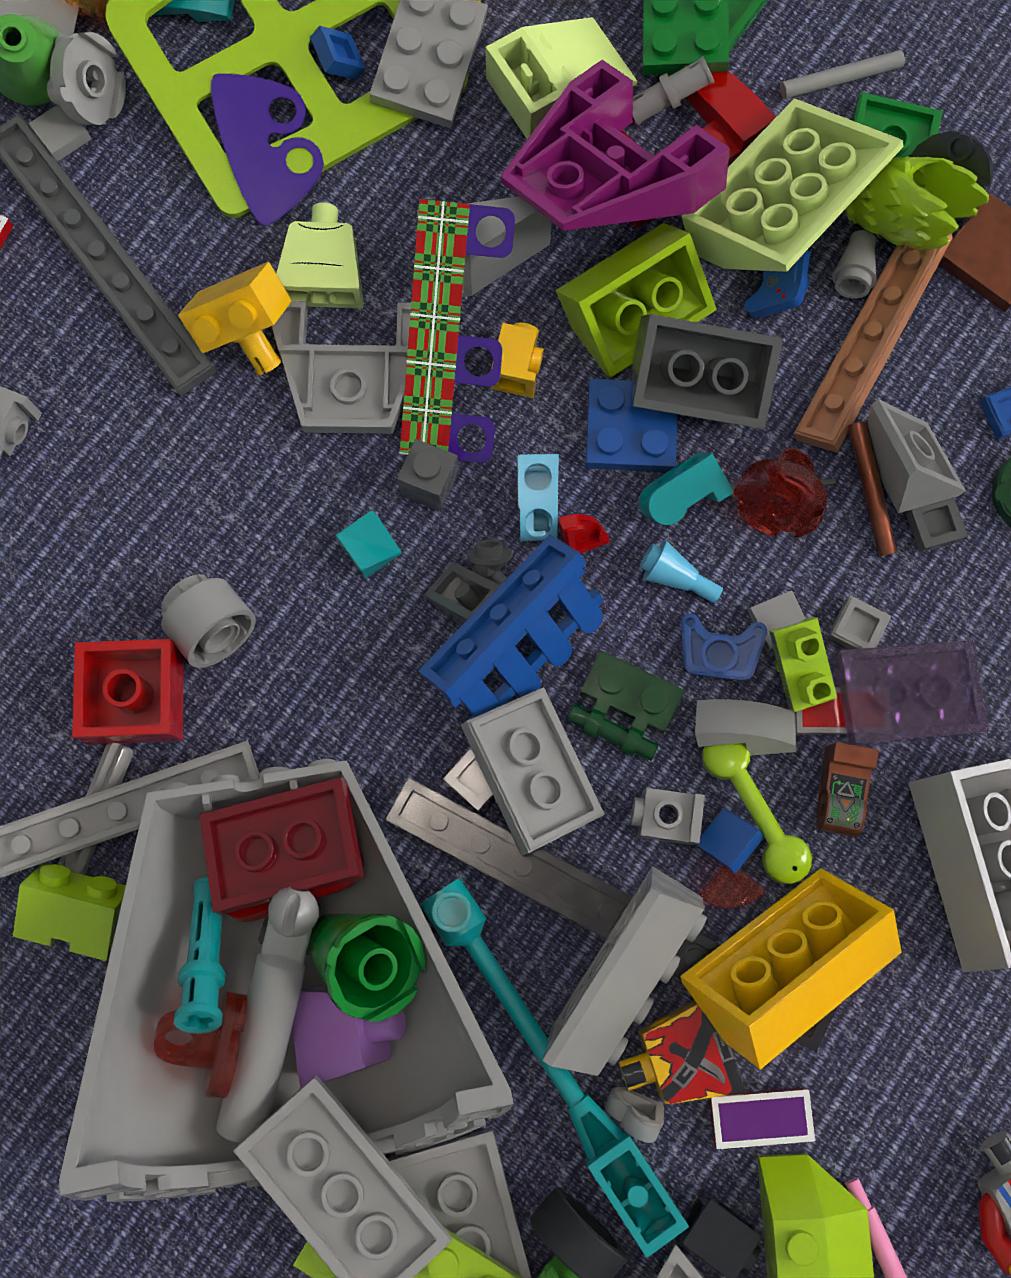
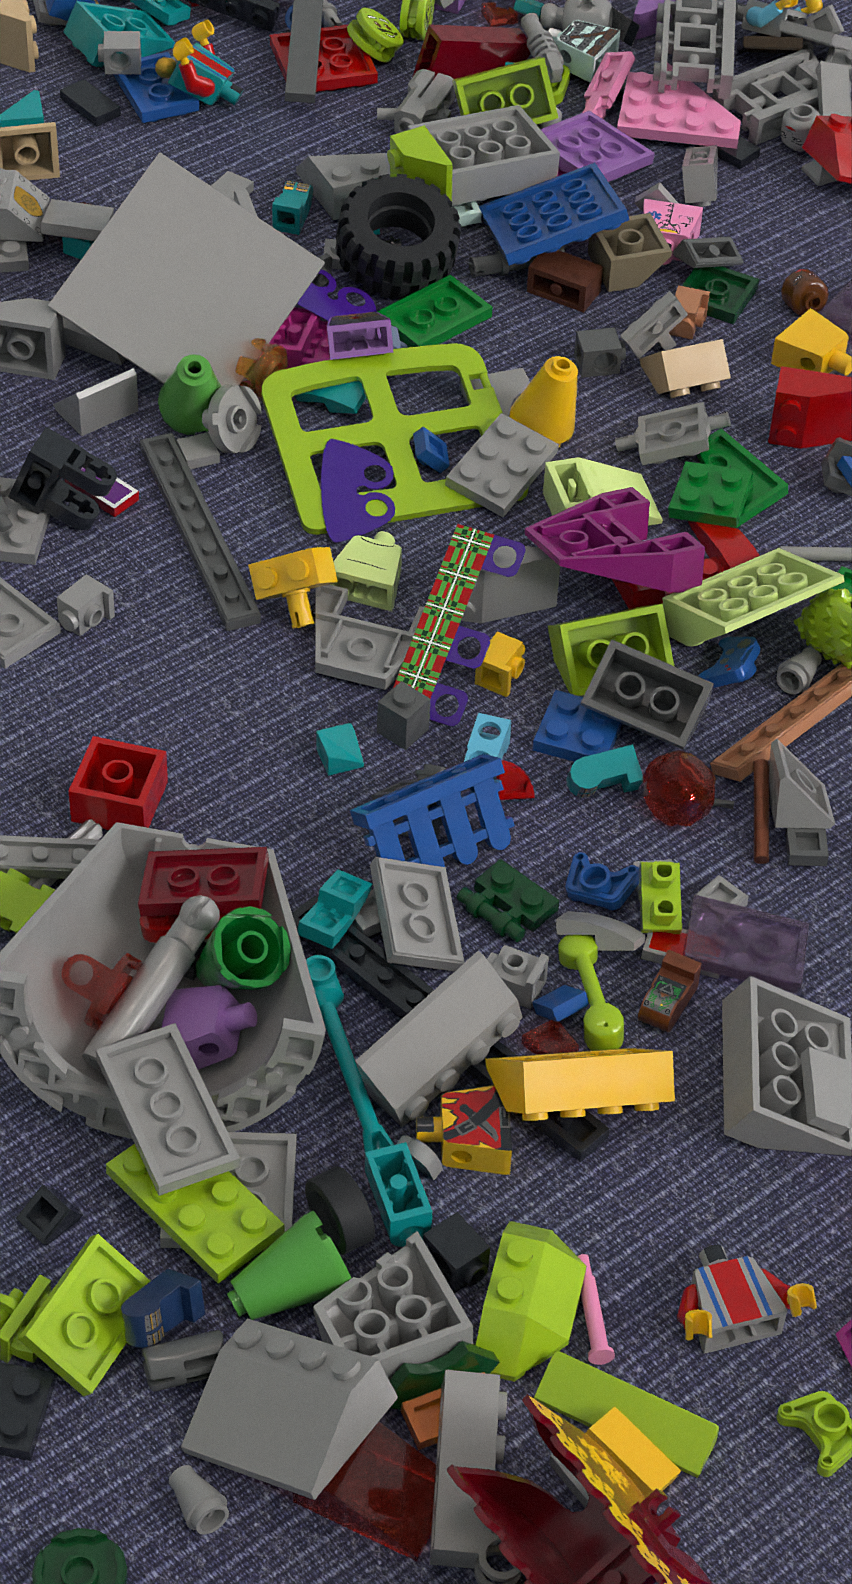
camera: 15 degrees right, 30 degrees down
(202, 973) = (115, 934): teal pin -> none
(206, 619) = (197, 760): light grey piece -> none
(438, 799) = (335, 910): none -> teal slope
(668, 567) = (574, 820): medium azure cone -> none
(671, 90) = (693, 524): light grey pin -> none
(762, 1118) = (521, 1195): dark purple tile -> none

